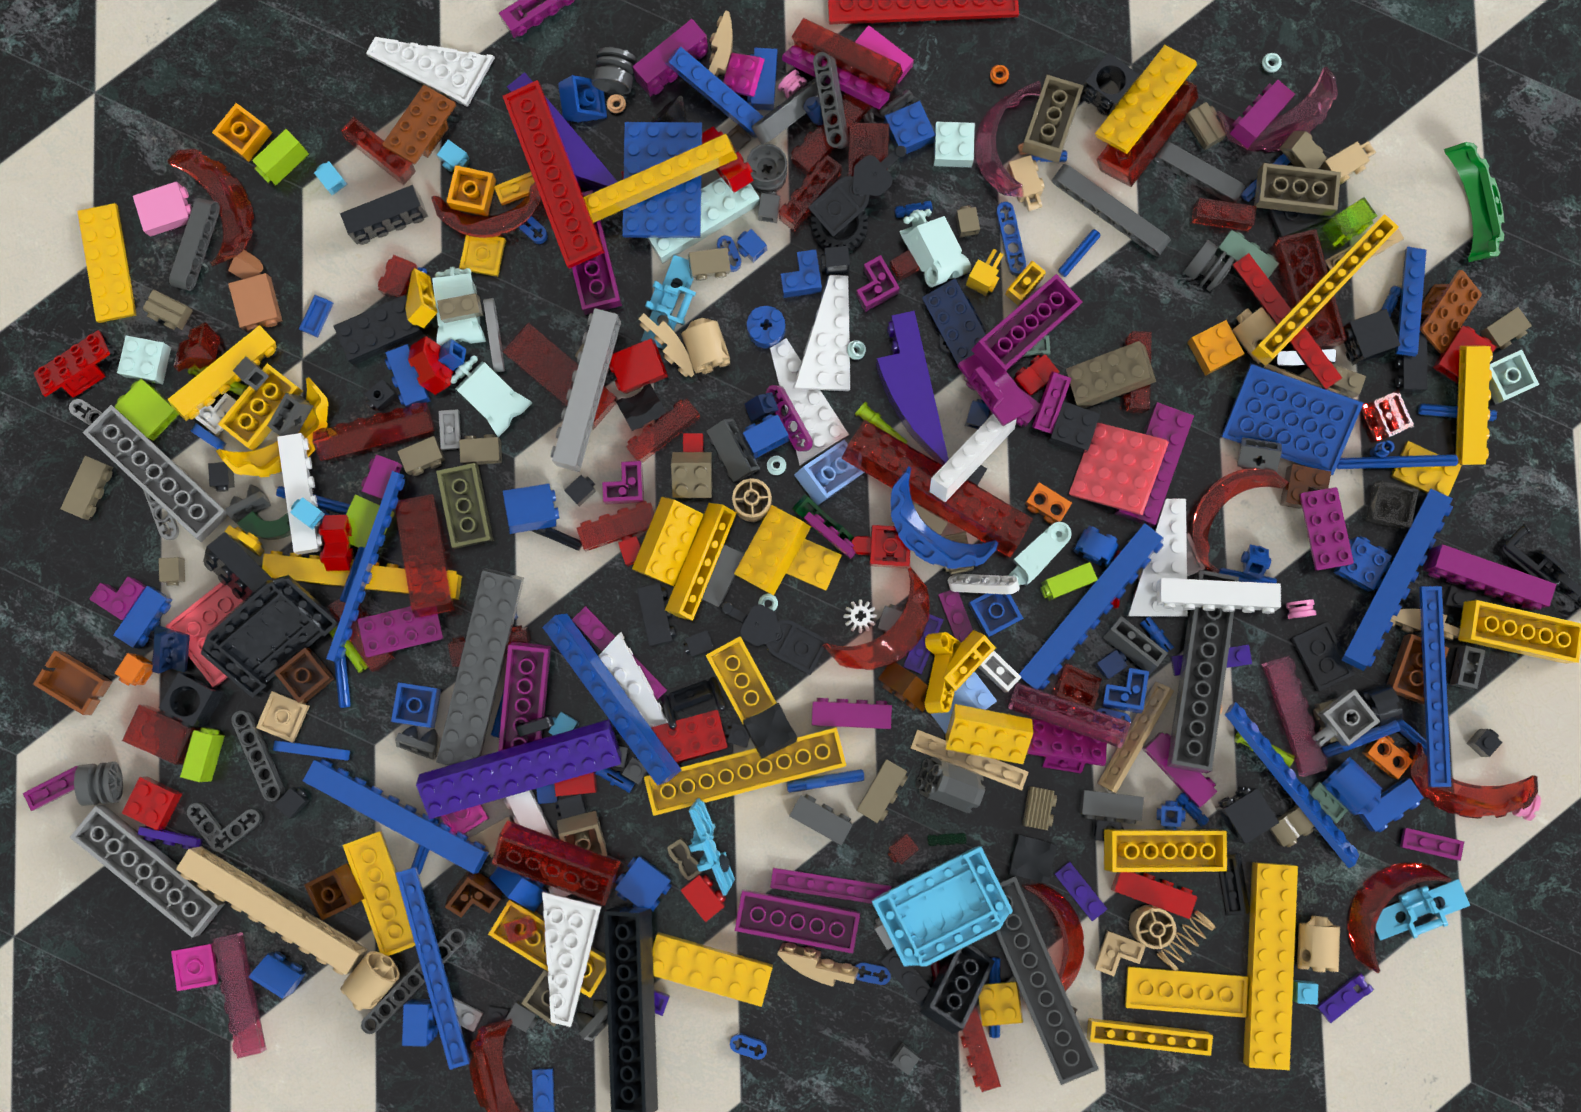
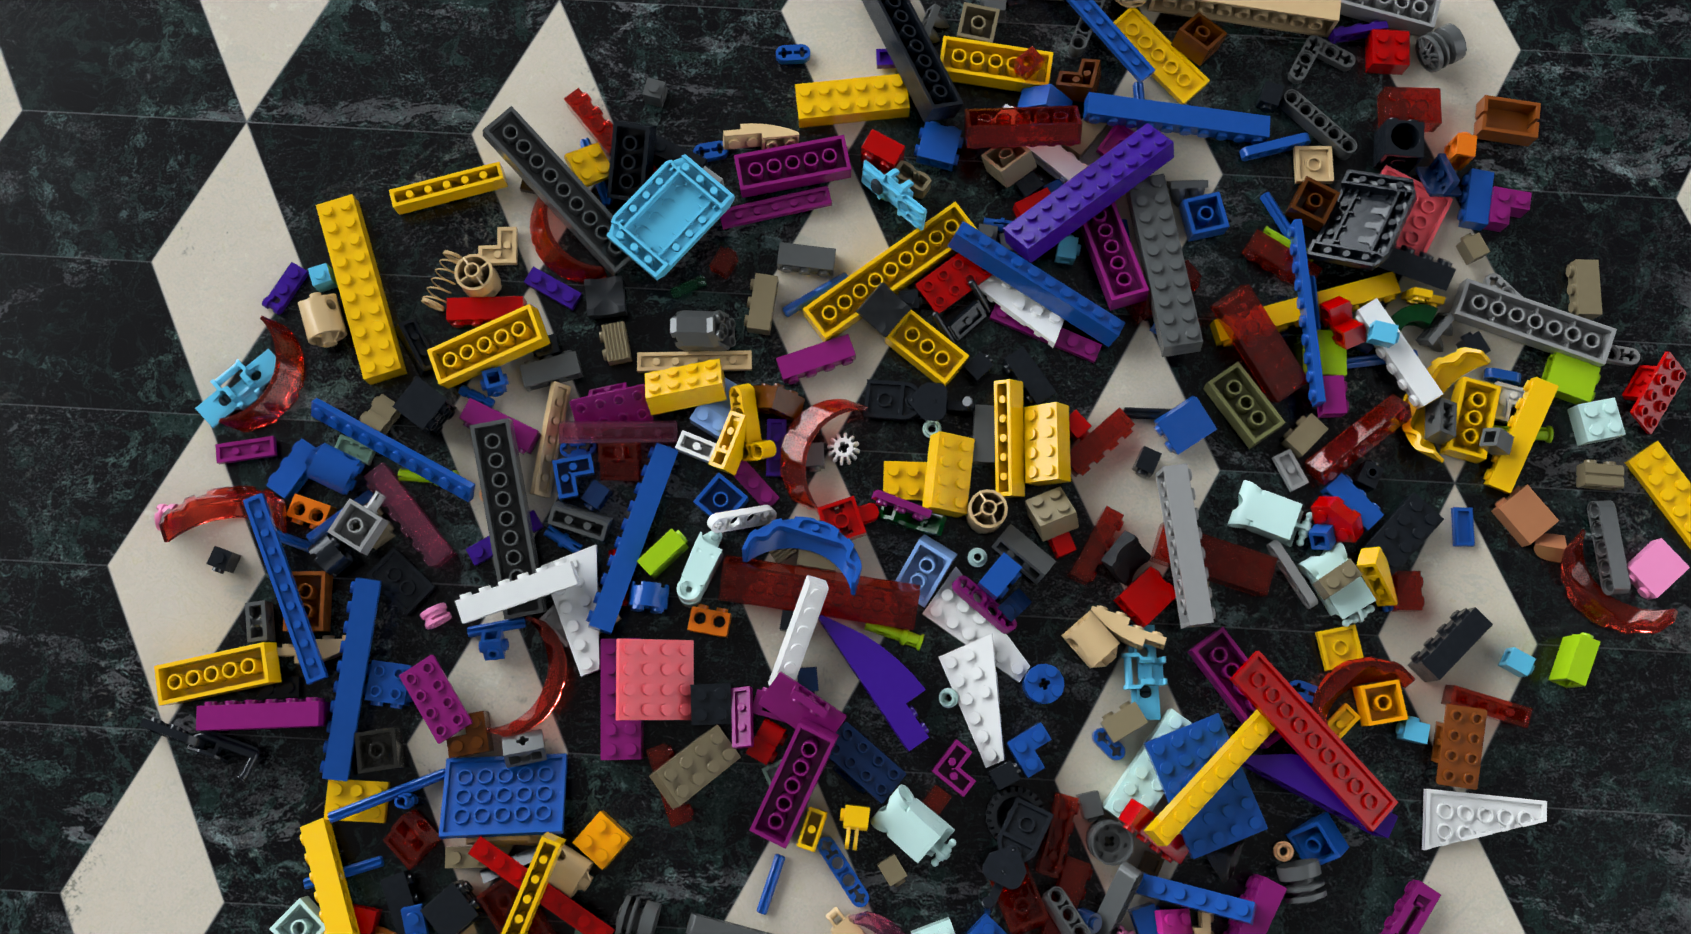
camera: 155 degrees right, 5 degrees down
(51, 789) = (1478, 29): magenta plate -> none
(198, 349) = (1554, 449): clear red brick -> none
(202, 755) = (1365, 103): lime brick -> none
(242, 132) = (1622, 671): light orange brick -> none
(397, 631) = (1256, 267): magenta bracket -> none
(480, 450) = (1253, 461): dark tan brick -> none
(534, 725) = (1093, 232): black beam -> none
(568, 940) = (981, 67): white wing -> none
(629, 489) = (1103, 479): magenta brick -> none
(751, 245) = (1091, 759): blue brick -> none
(900, 211) = (952, 861): blue axle -> none
(1186, 992) = (428, 239): yellow plate -> none

